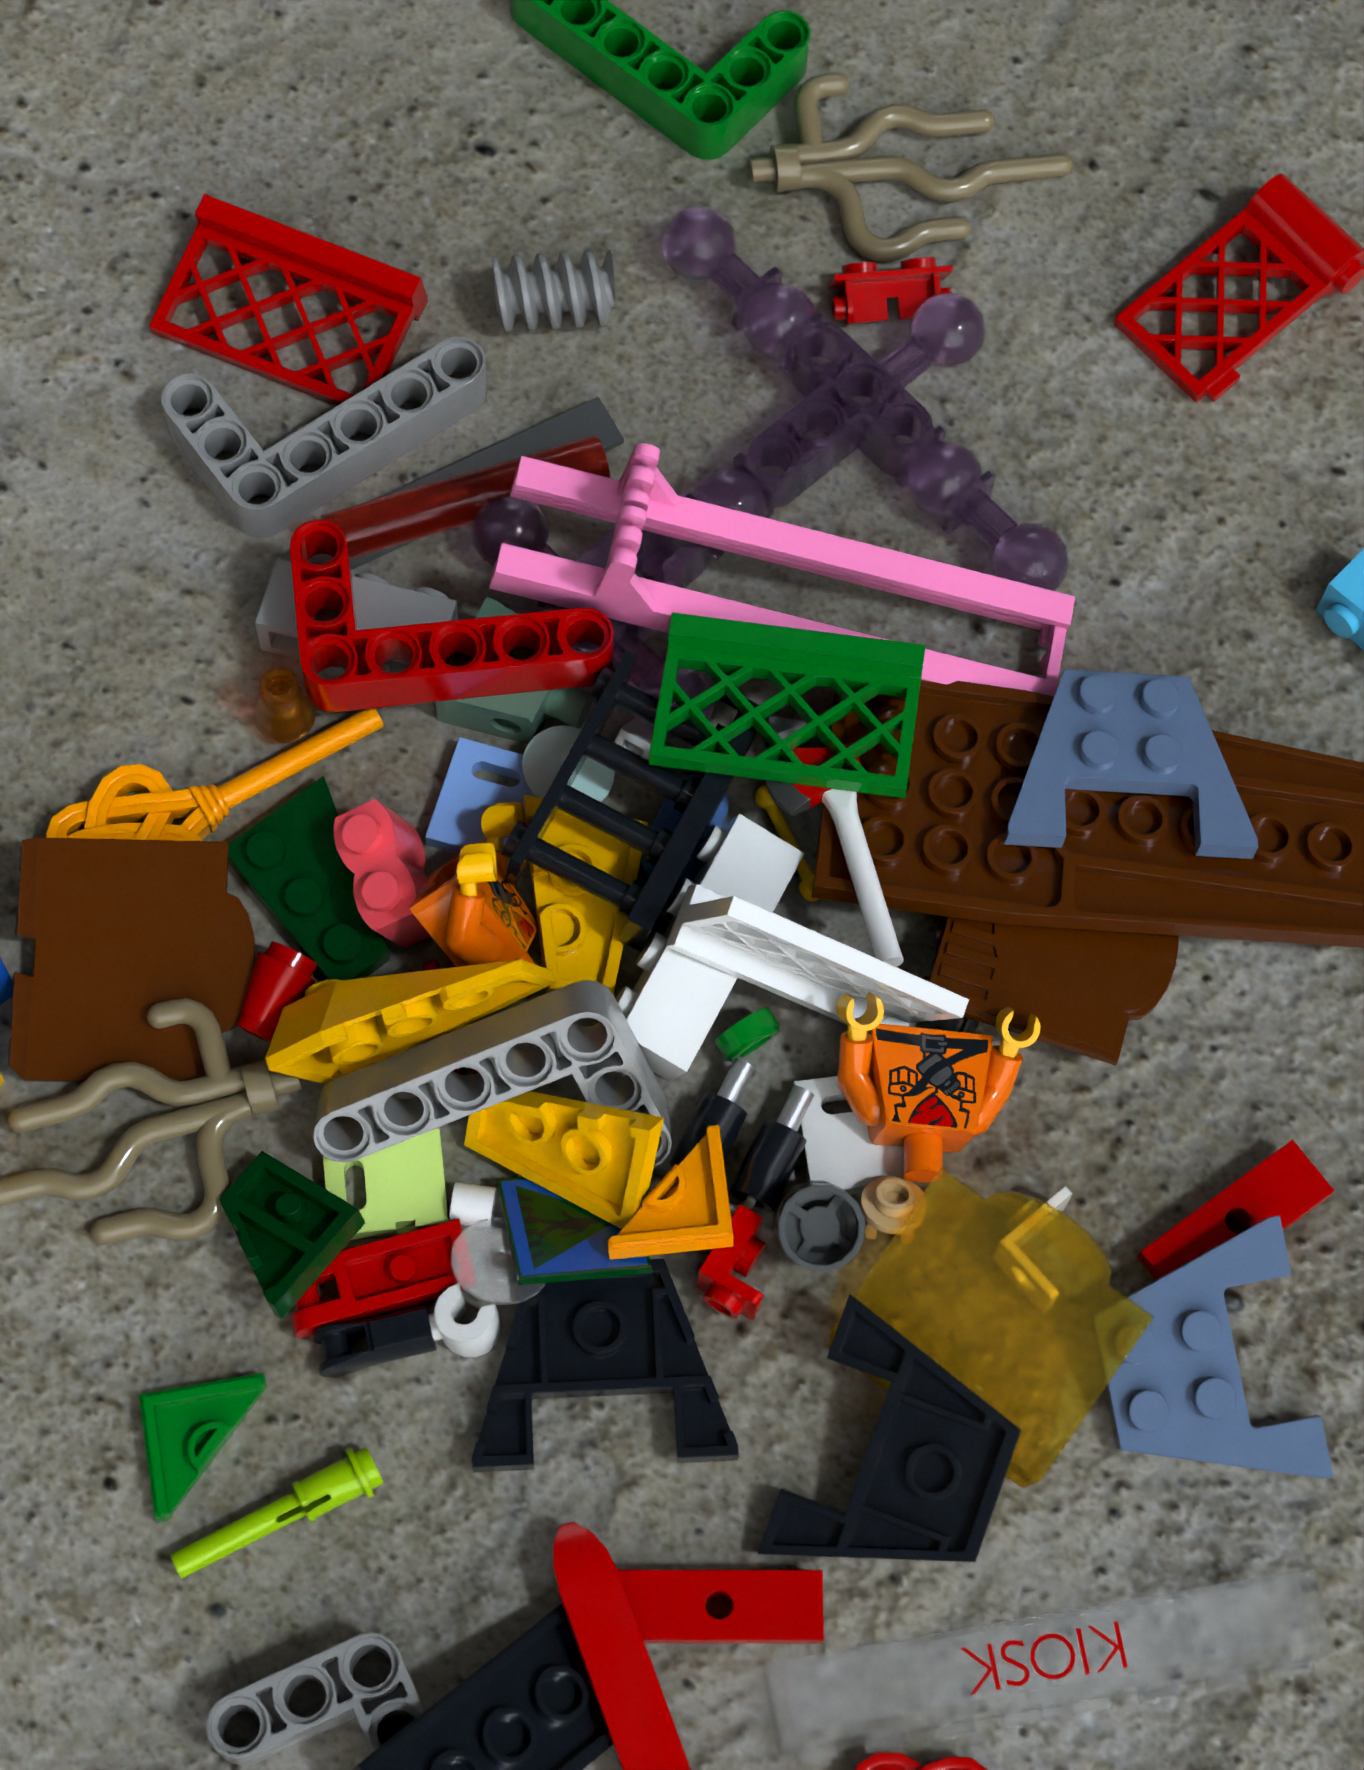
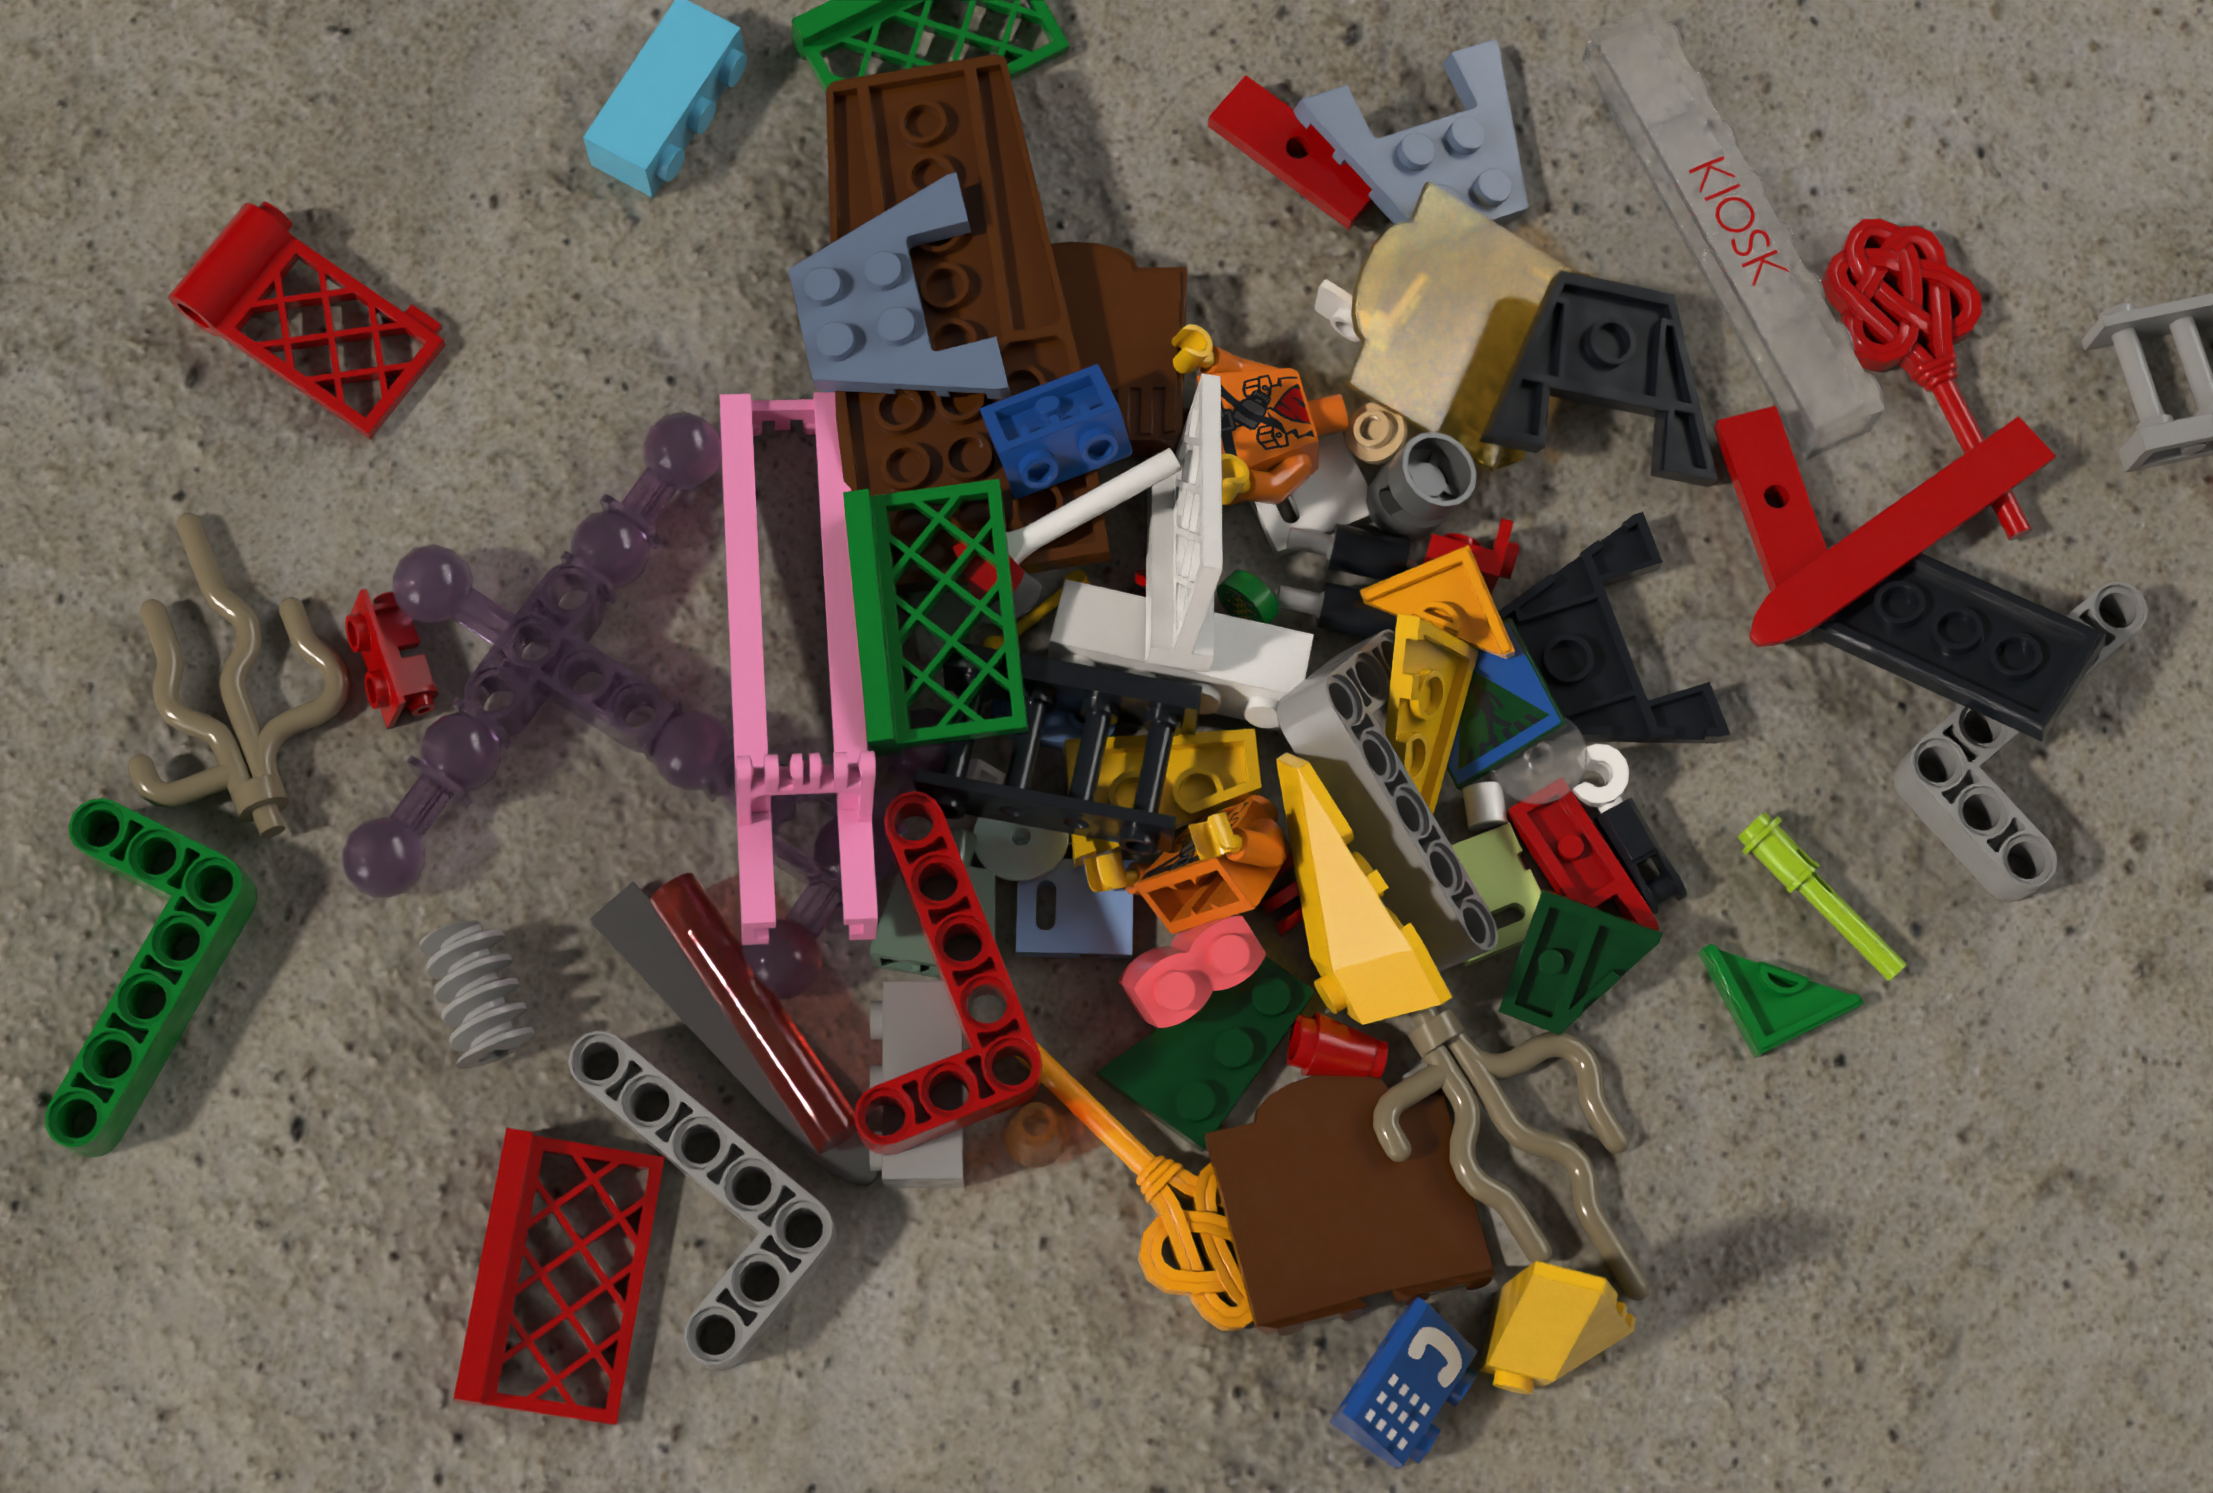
camera: 105 degrees left, 5 degrees up
(950, 860) = (1057, 431): none -> blue bracket

